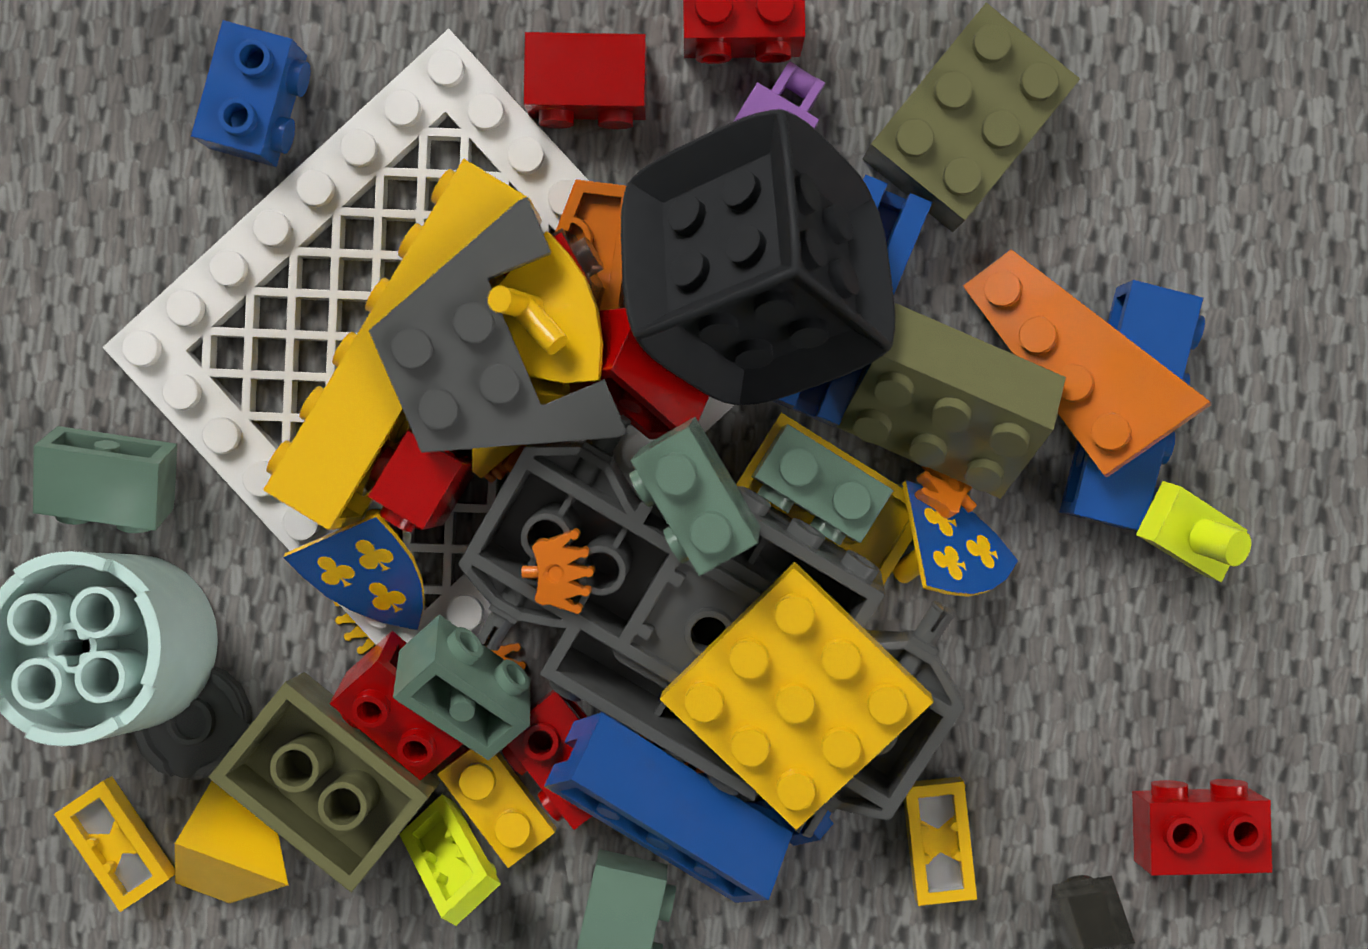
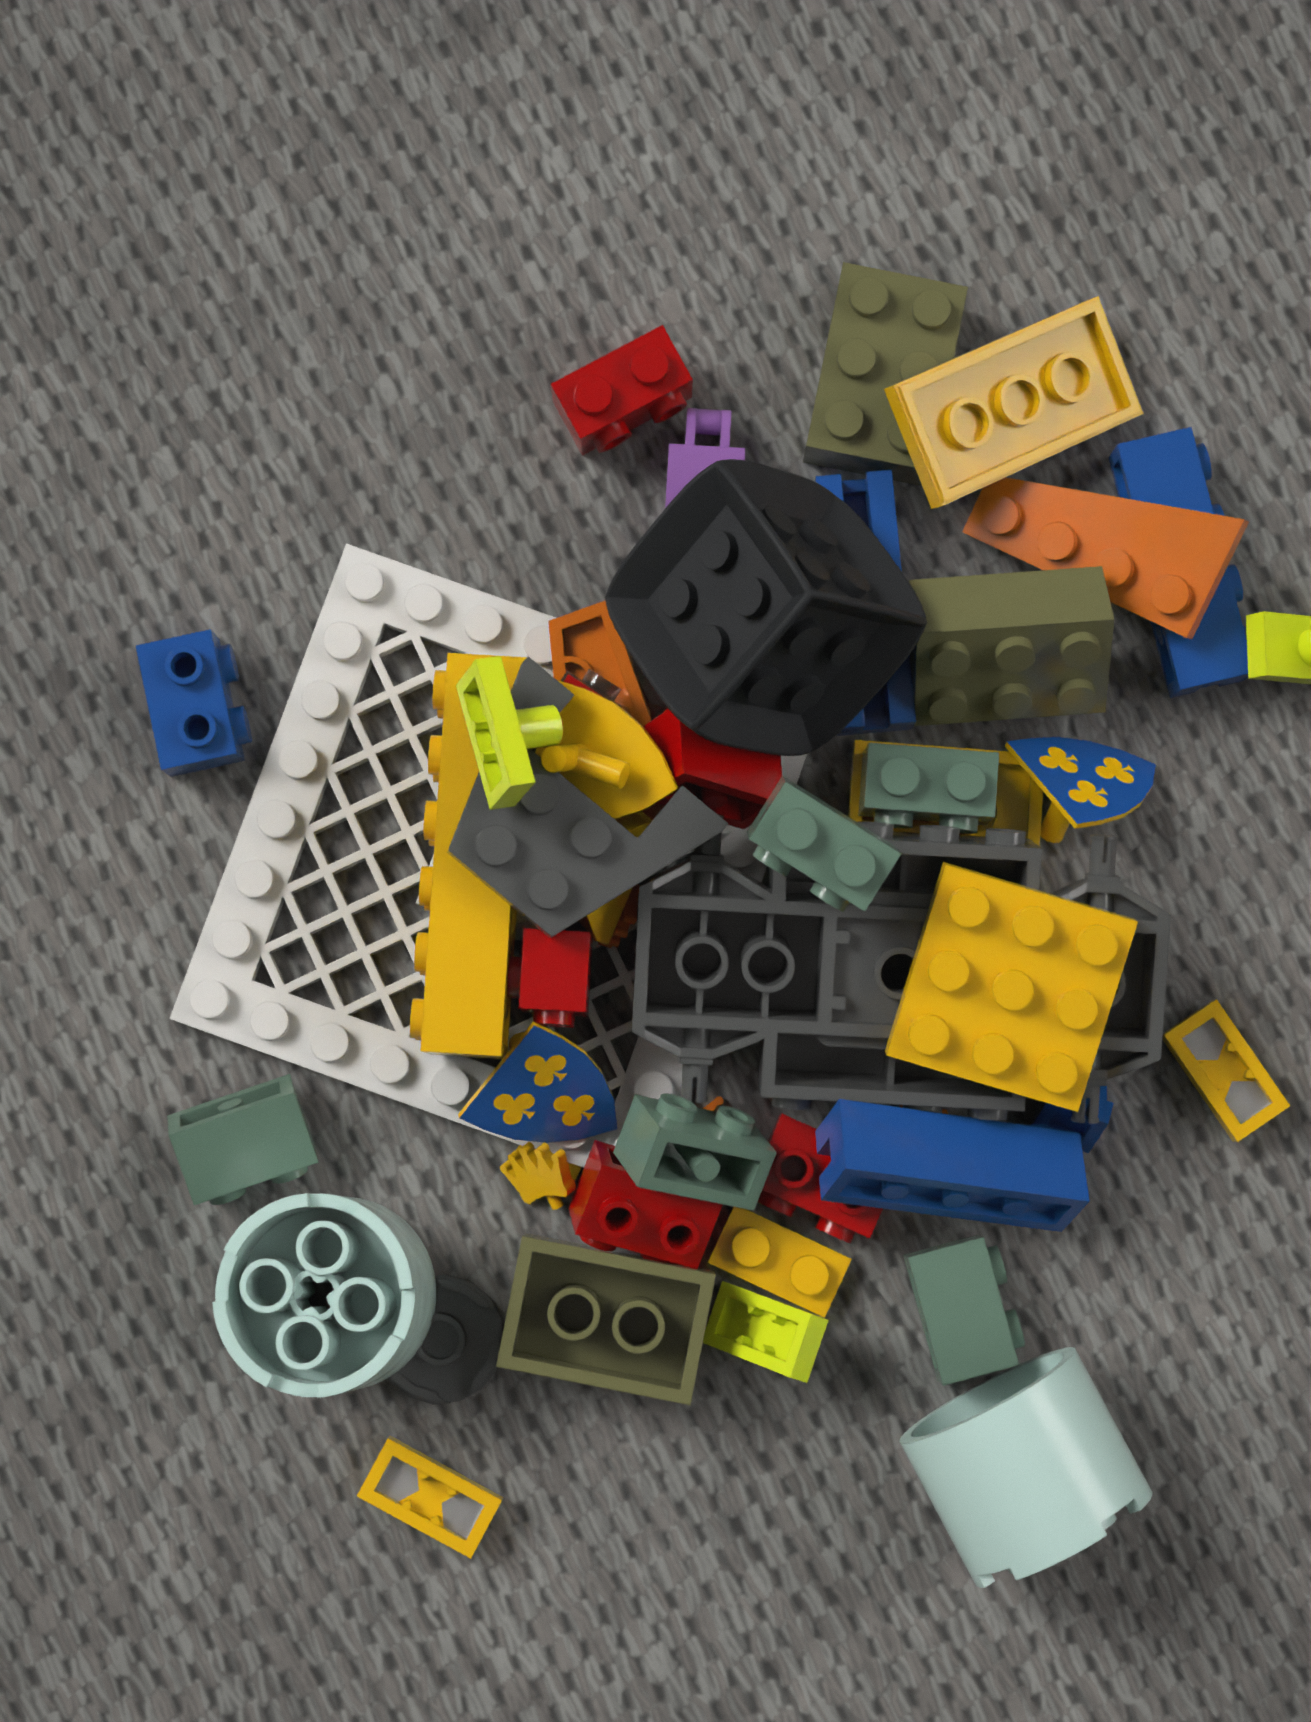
camera: 20 degrees left, 5 degrees down
(228, 850) = (546, 1439): yellow slope -> none
(336, 632) = (539, 1174): none -> yellow piece
(466, 252) = (503, 733): none -> neon yellow tile
(558, 571) = (729, 987): orange piece -> none
(585, 78) = (504, 523): red brick -> none
(943, 493) = (1049, 734): orange piece -> none
(1064, 198) = (1013, 402): none -> yellow tile

